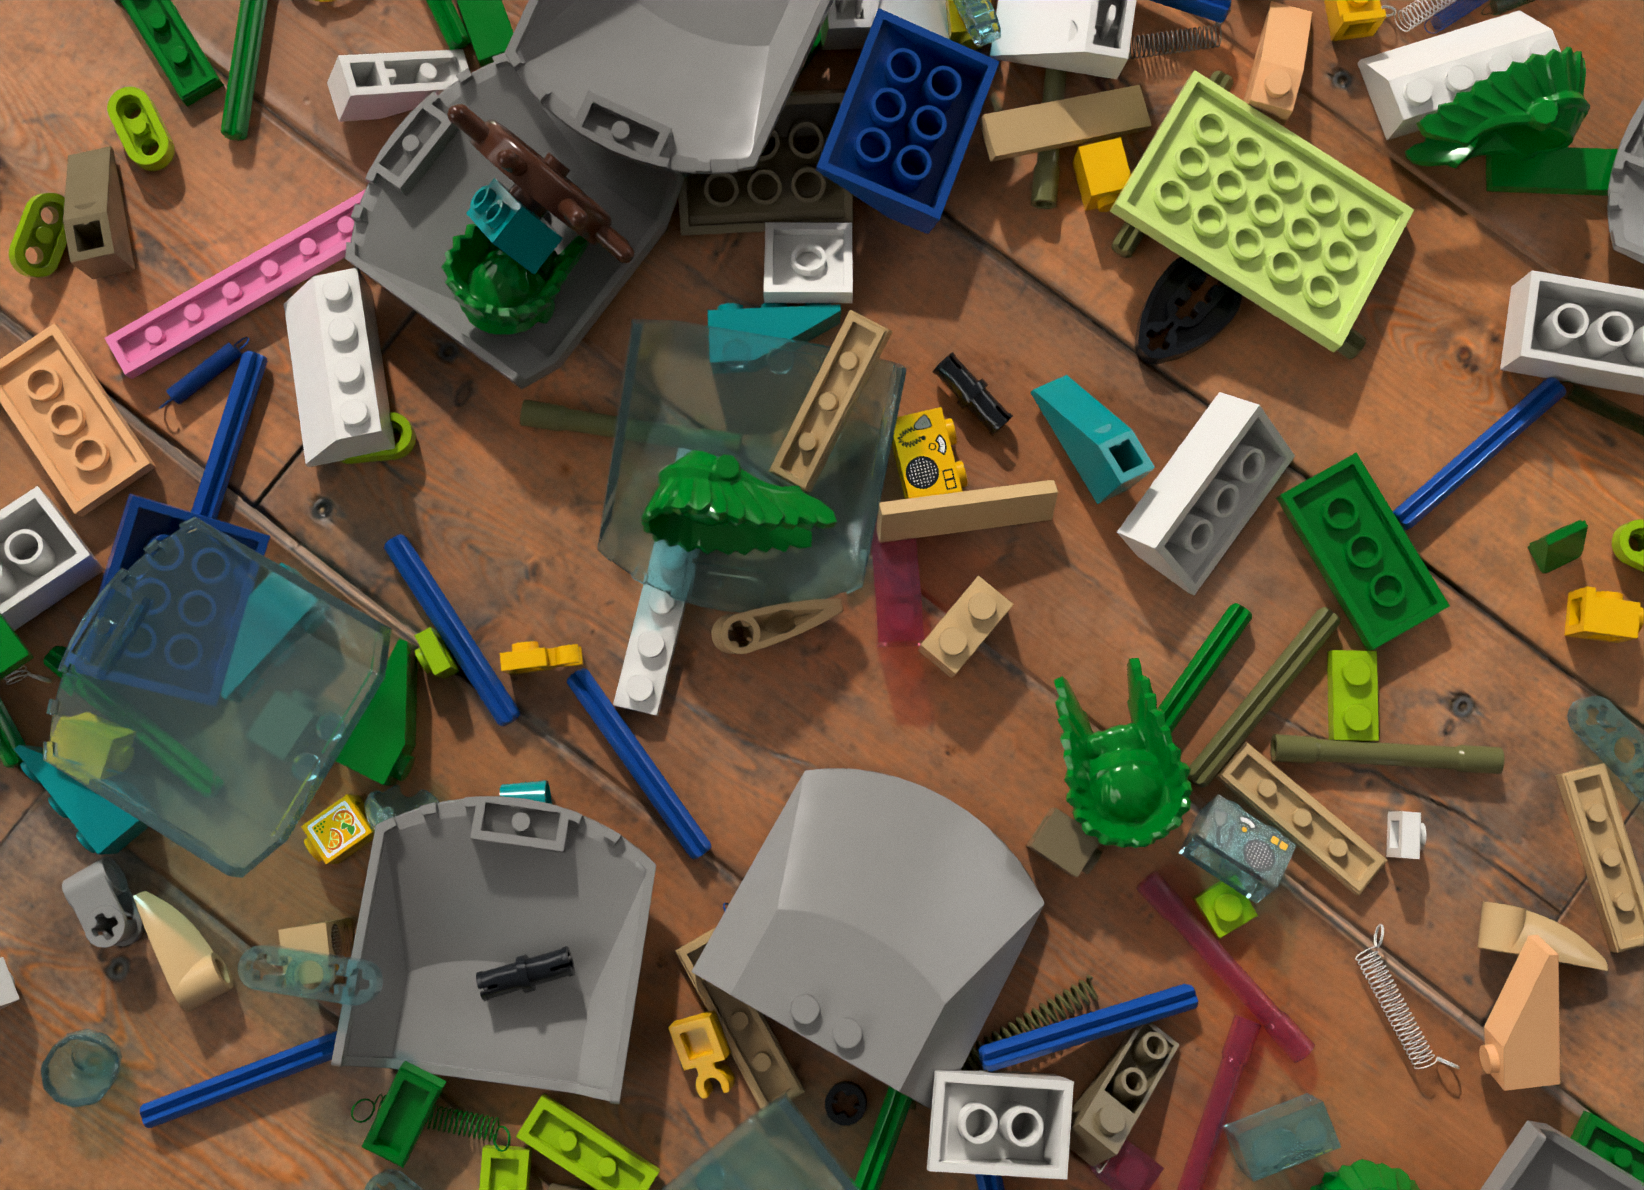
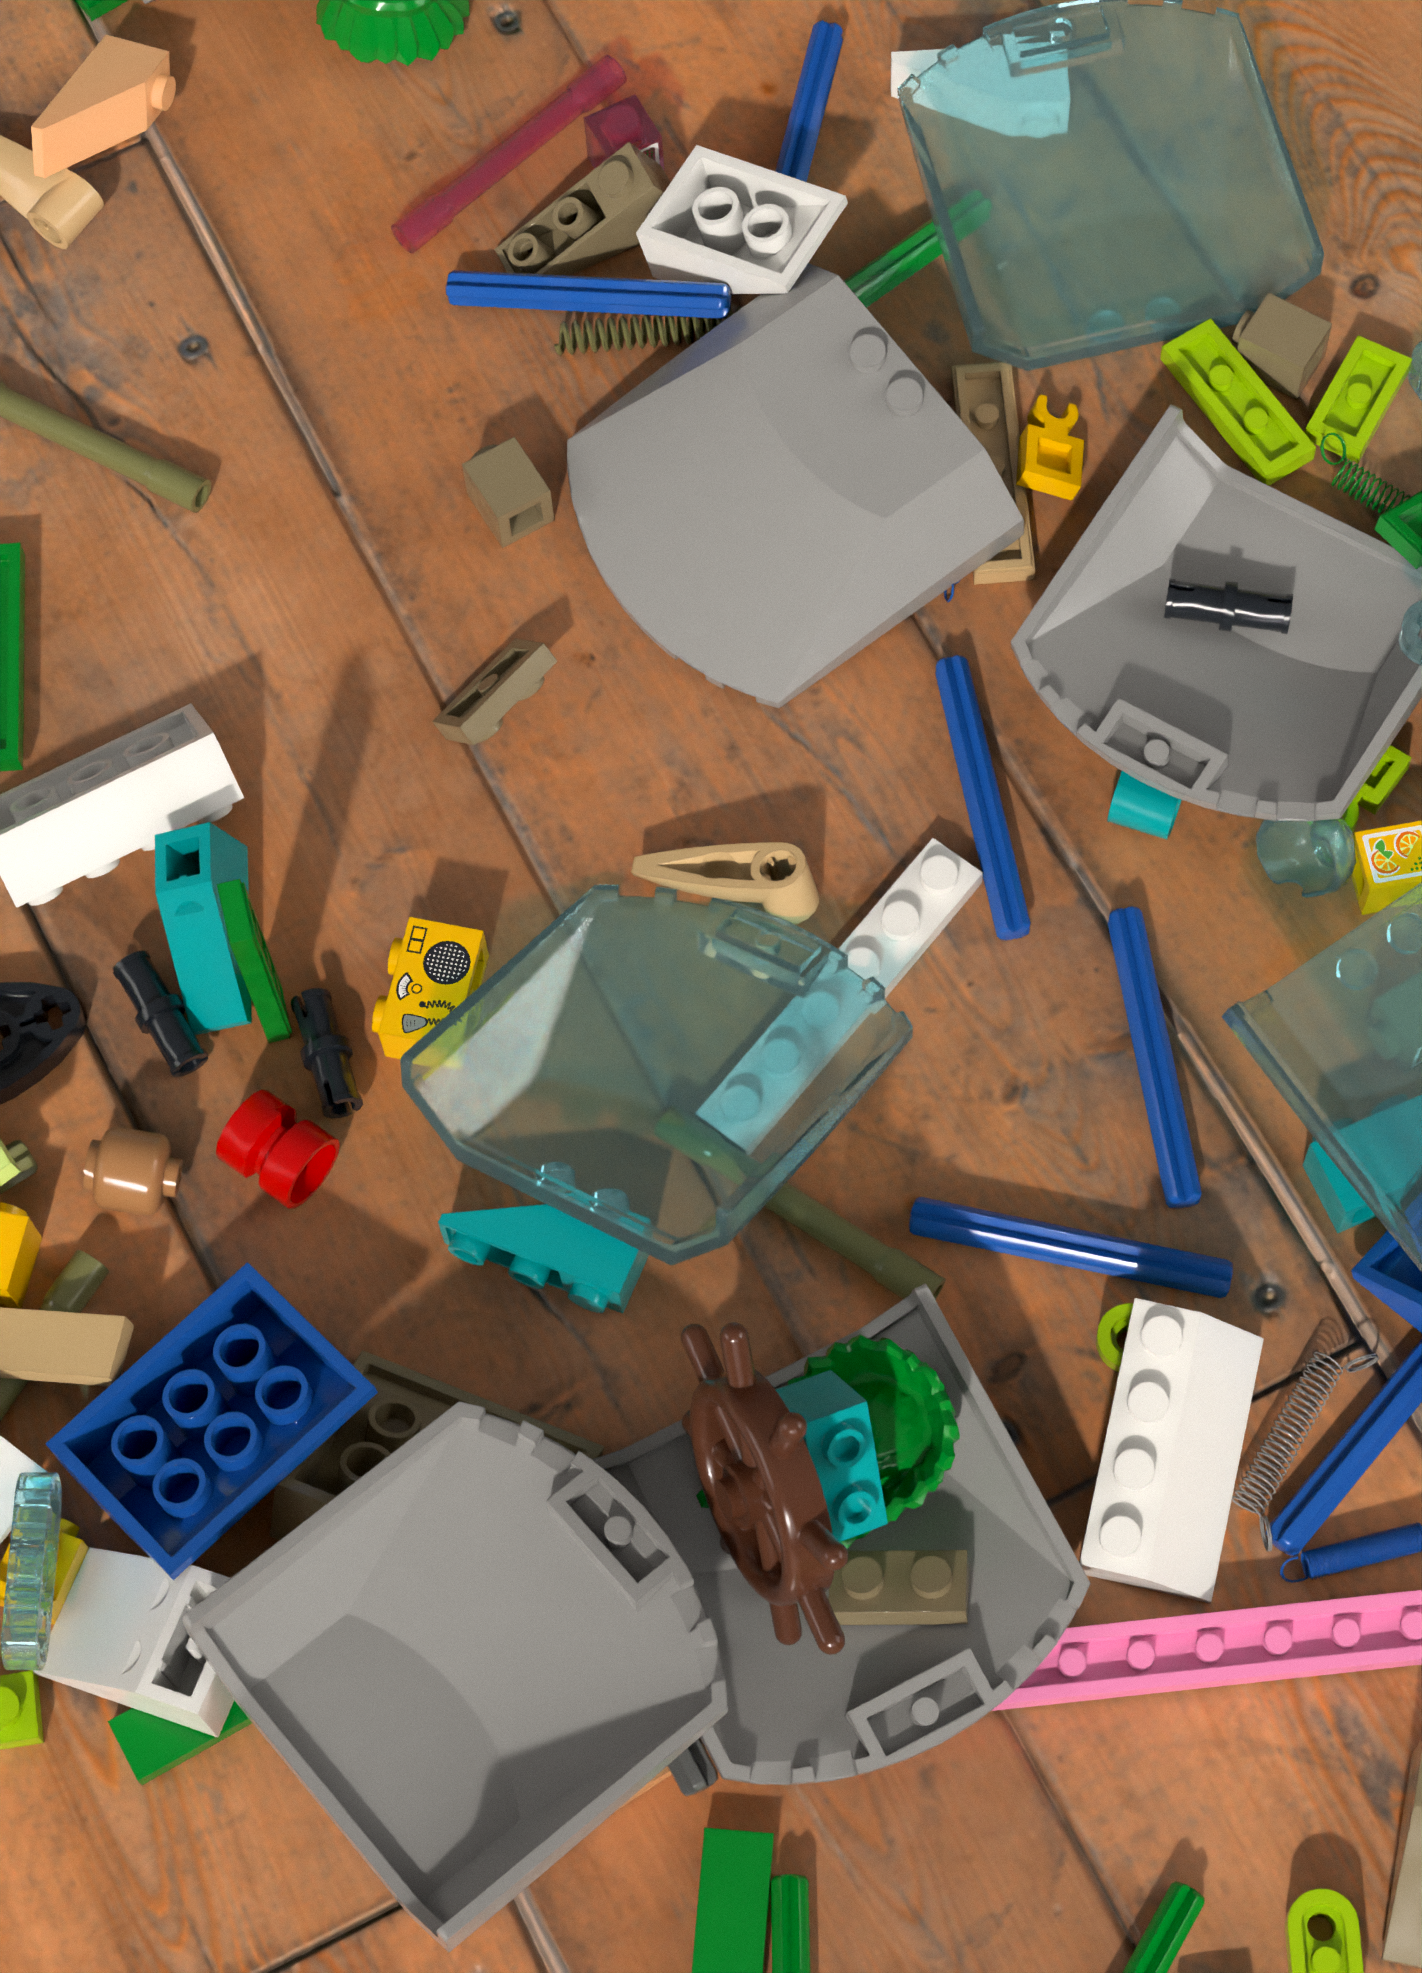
camera: 150 degrees left, 15 degrees down
(270, 363) = (1268, 1546): none -> light grey piece
(387, 730) = (1294, 934): green slope -> none
(390, 82) = (907, 1848): white slope -> none
(434, 654) = (1187, 1025): lime plate -> none
(445, 218) = (902, 1588): none -> dark tan plate
(452, 480) = (1071, 1247): none -> blue axle
(528, 657) = (1060, 965): yellow plate -> none
(719, 506) = (722, 993): green piece -> none
(808, 262) = (450, 1310): white plate -> none
(830, 401) = (516, 1090): tan tile -> none
(842, 1118) = (922, 329): black bush -> none
(896, 593) = (551, 855): clear pink slope -> none
(965, 626) = (494, 770): tan brick -> none
(966, 511) = (416, 901): tan tile -> none
(967, 314) = (285, 1154): none -> red wheel
(995, 687) = (508, 679): none -> dark tan plate
(1035, 390) = (254, 960): none -> green tile
(1048, 261) = (132, 1171): none -> medium nougat head
(1090, 372) = (160, 1013): none -> black pin
(1126, 779) = (393, 518): green piece -> none
(1204, 664) = (276, 595): green axle -> none
(1224, 908) = (360, 360): lime plate -> none
(1237, 848) = (309, 400): clear light blue brick -> none
(1263, 697) = (179, 555): olive axle -> none
(1276, 1023) = (420, 380): clear pink piece -> none
(1281, 1136) = (435, 110): clear light blue brick -> none
(1301, 818) = (217, 416): tan tile -> none
(1352, 695) = (74, 514): lime plate -> none
(1394, 1014) = (217, 124): white piece -> none
(1405, 835) = (111, 341): white plate -> none

